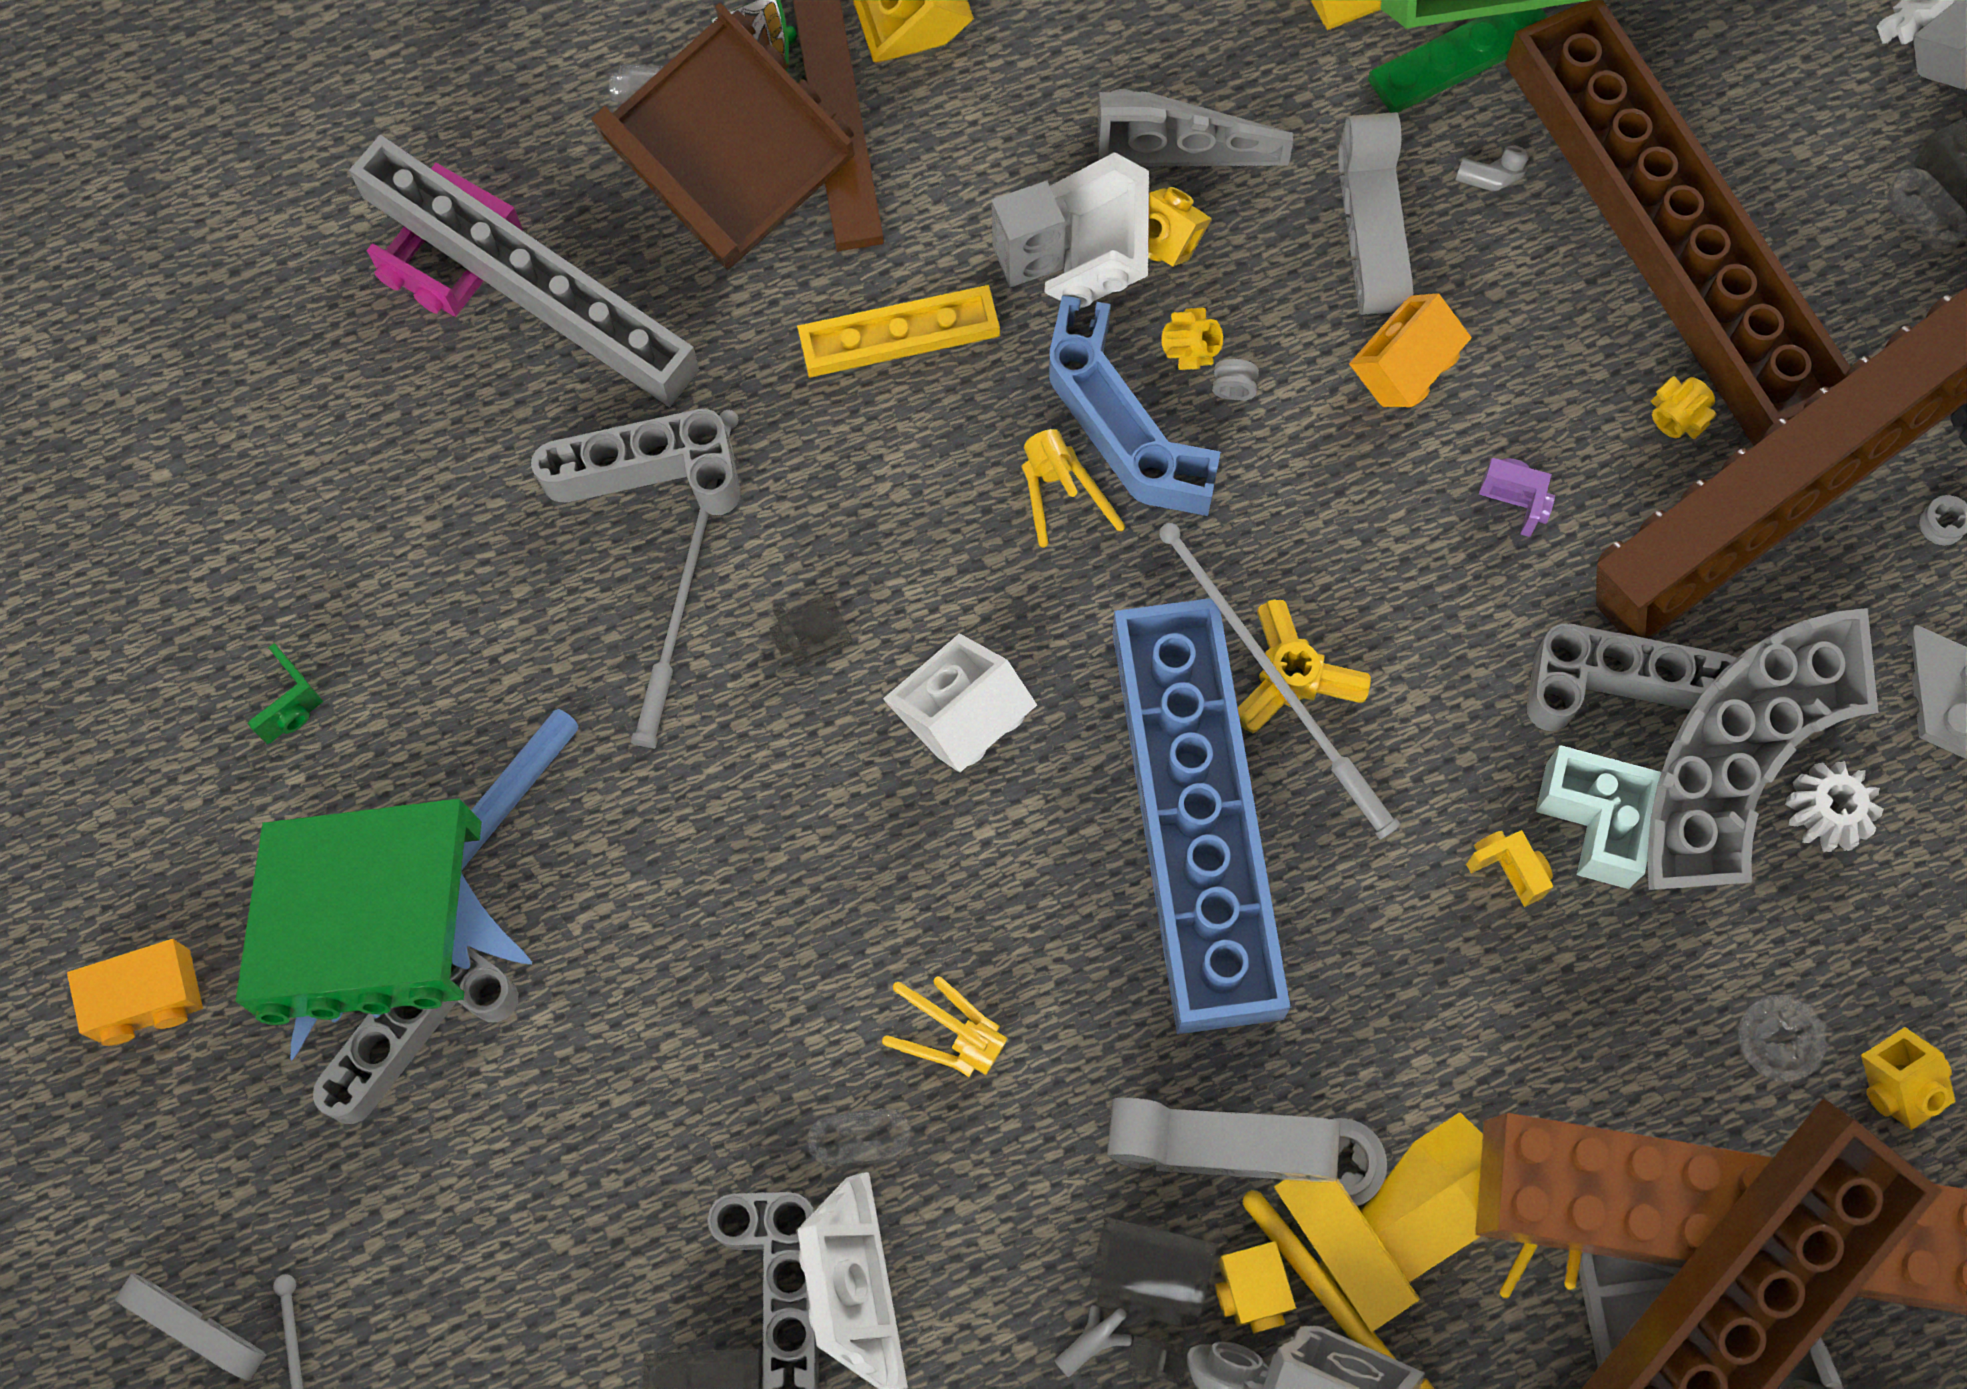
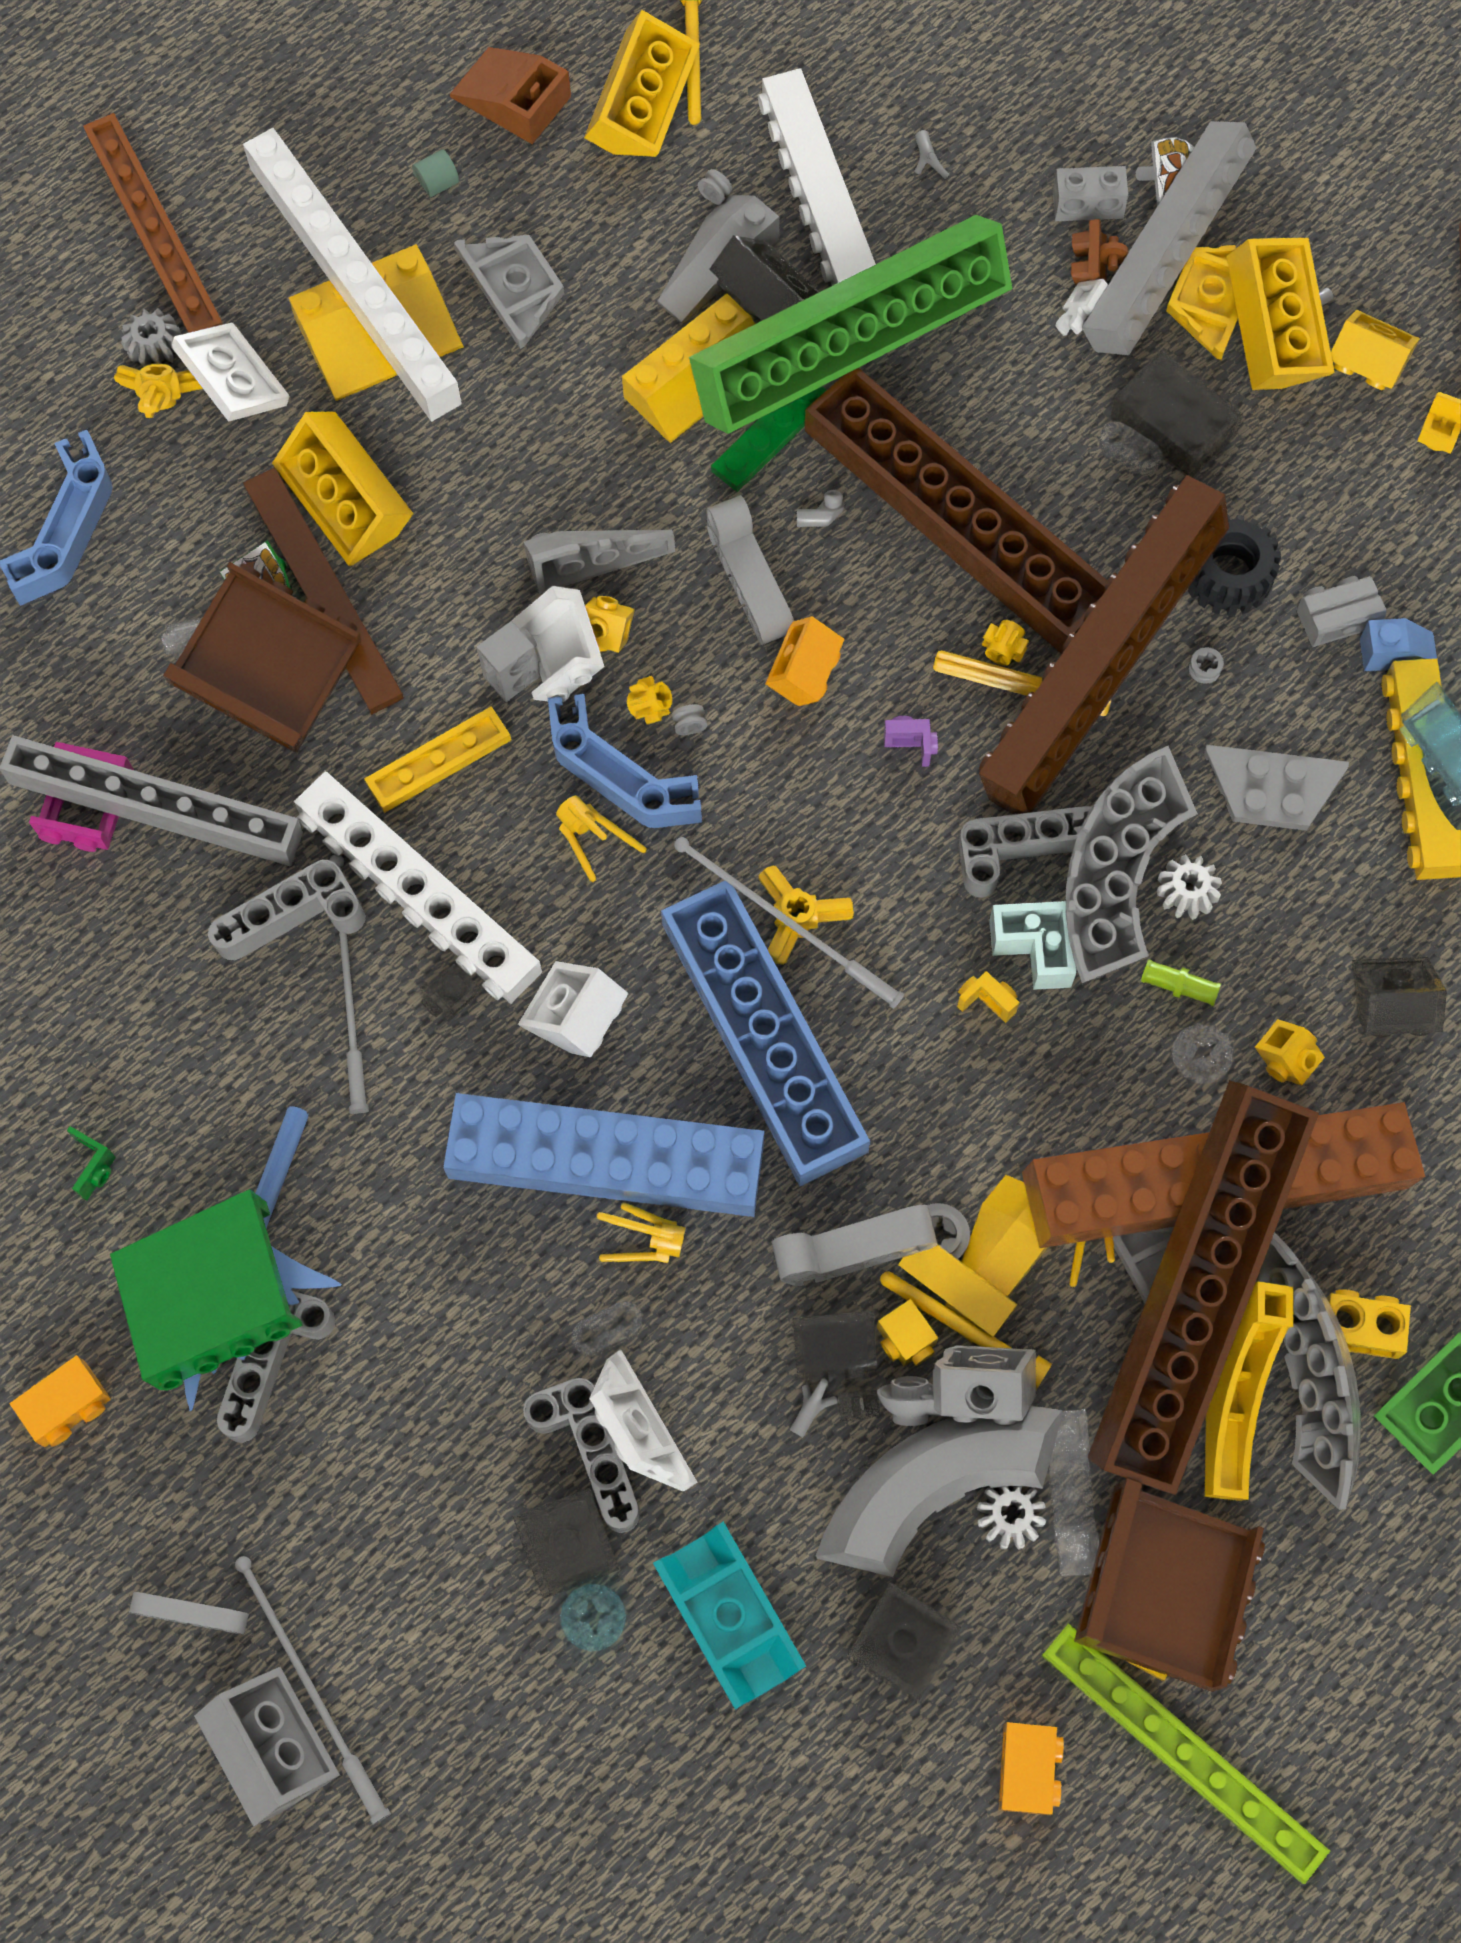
camera: 20 degrees left, 0 degrees up
(742, 337) = (328, 797): none -> white brick
(936, 906) = (604, 1154): none -> medium blue brick
(1649, 443) = (989, 674): none -> yellow axle
(1783, 932) = (1181, 982): none -> lime pin

